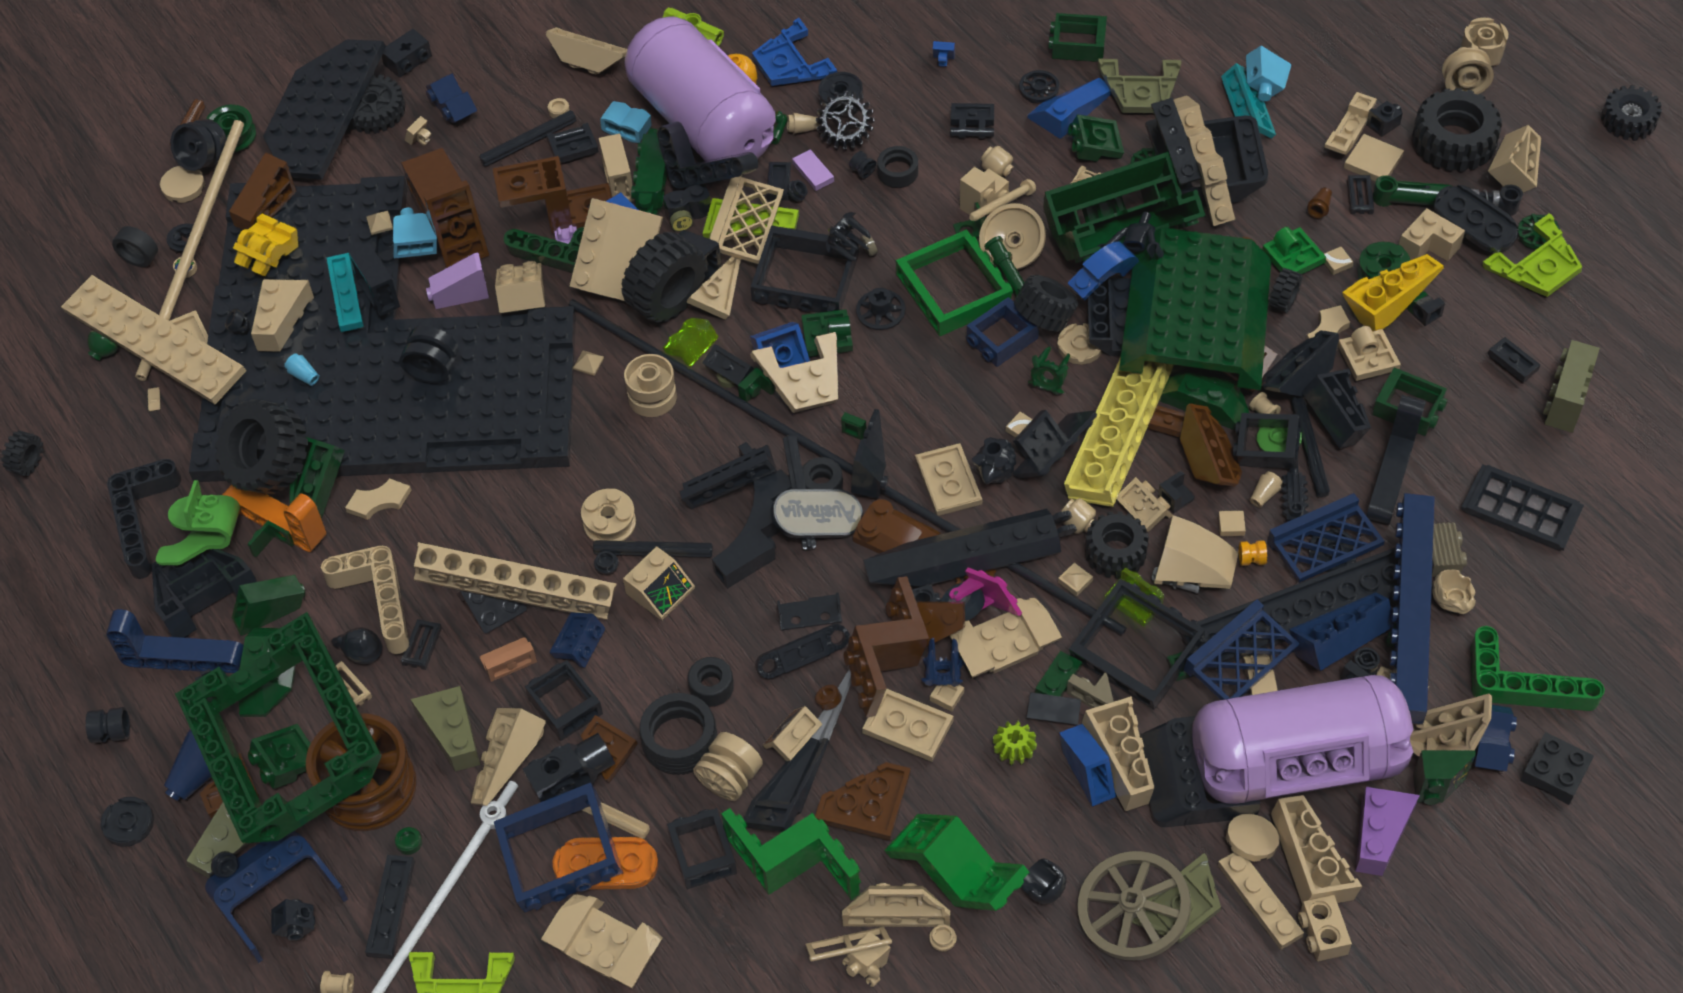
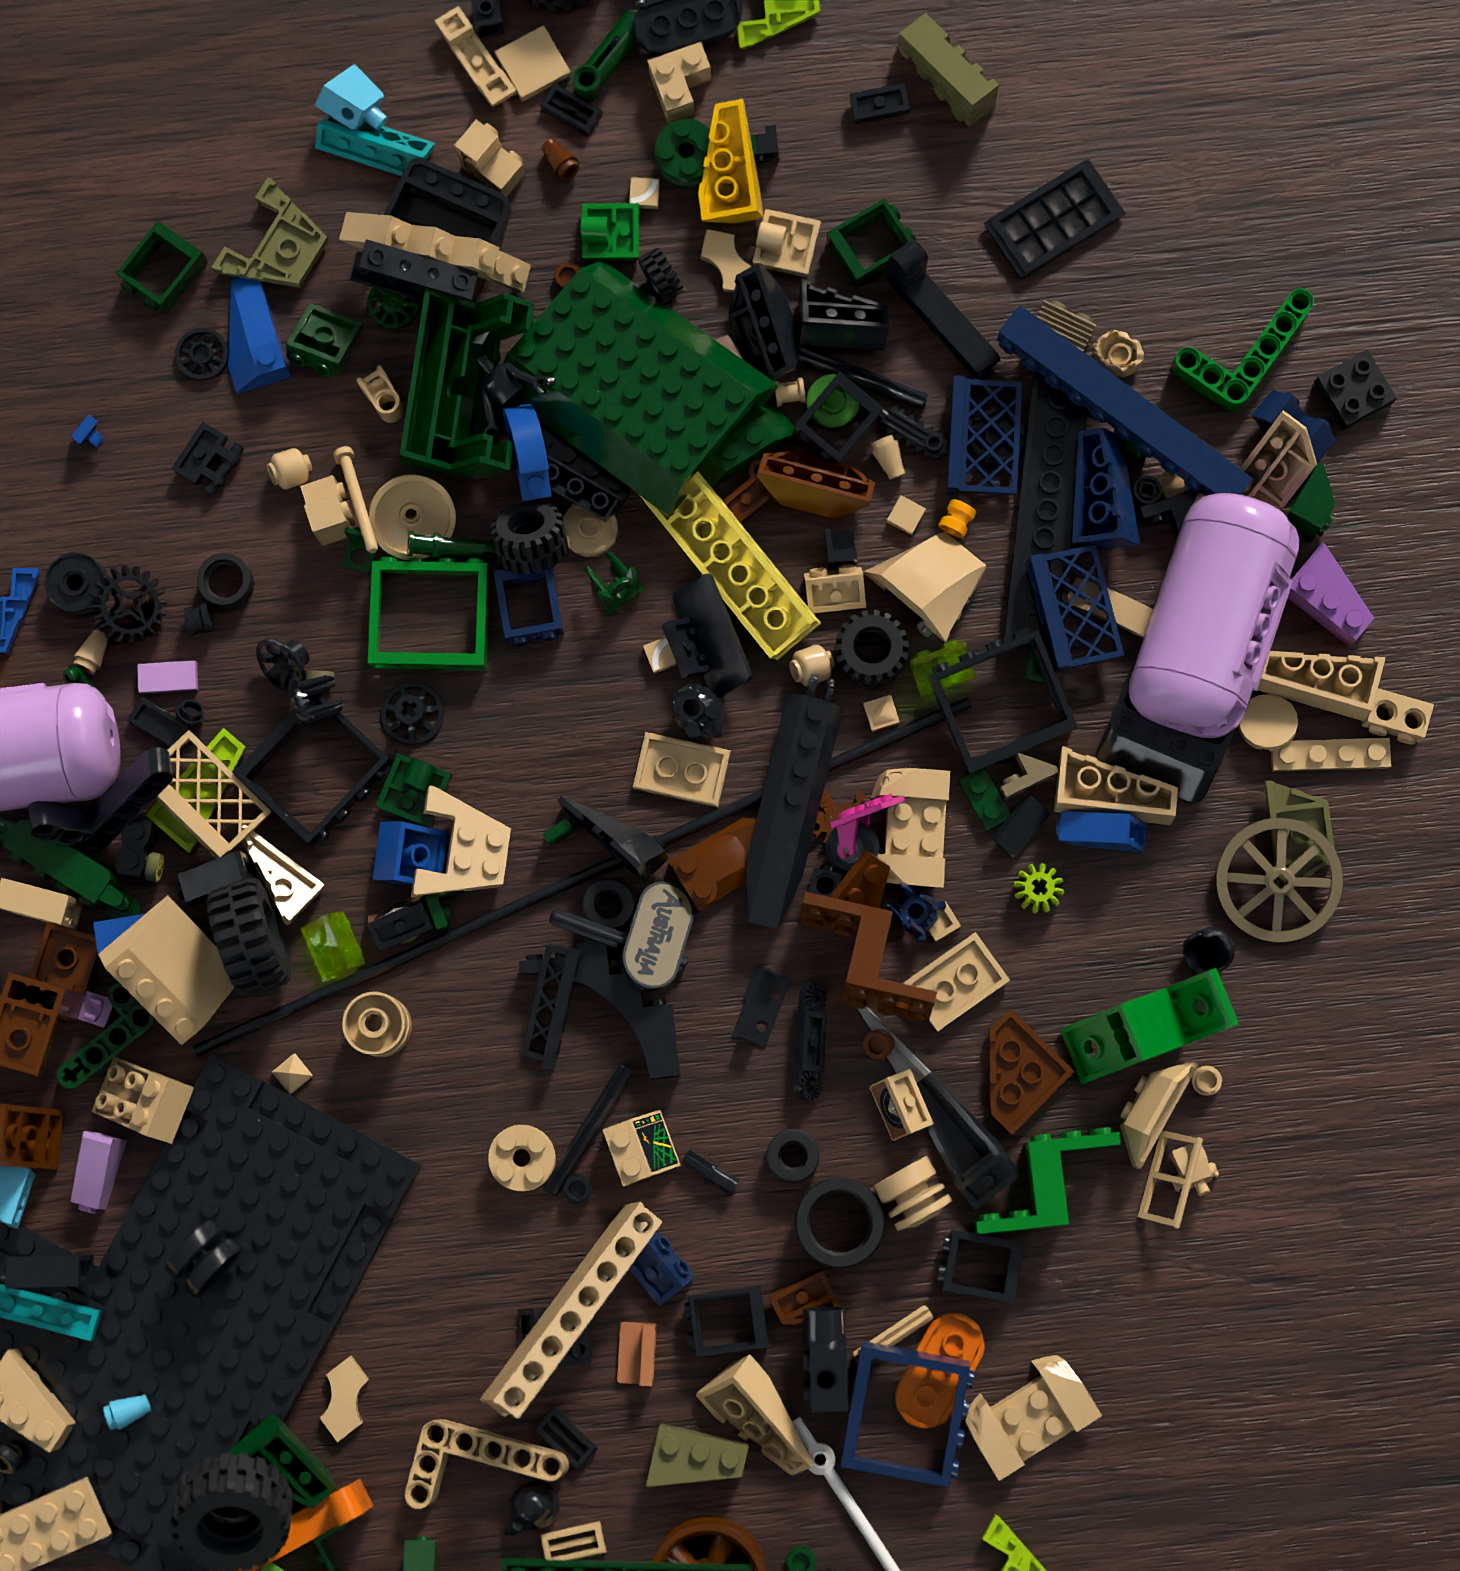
camera: 55 degrees left, 25 degrees up
(667, 638) = (710, 1171): none -> black axle
(868, 218) = (286, 661): none -> black wheel
(1288, 160) = (487, 161): none -> tan brick

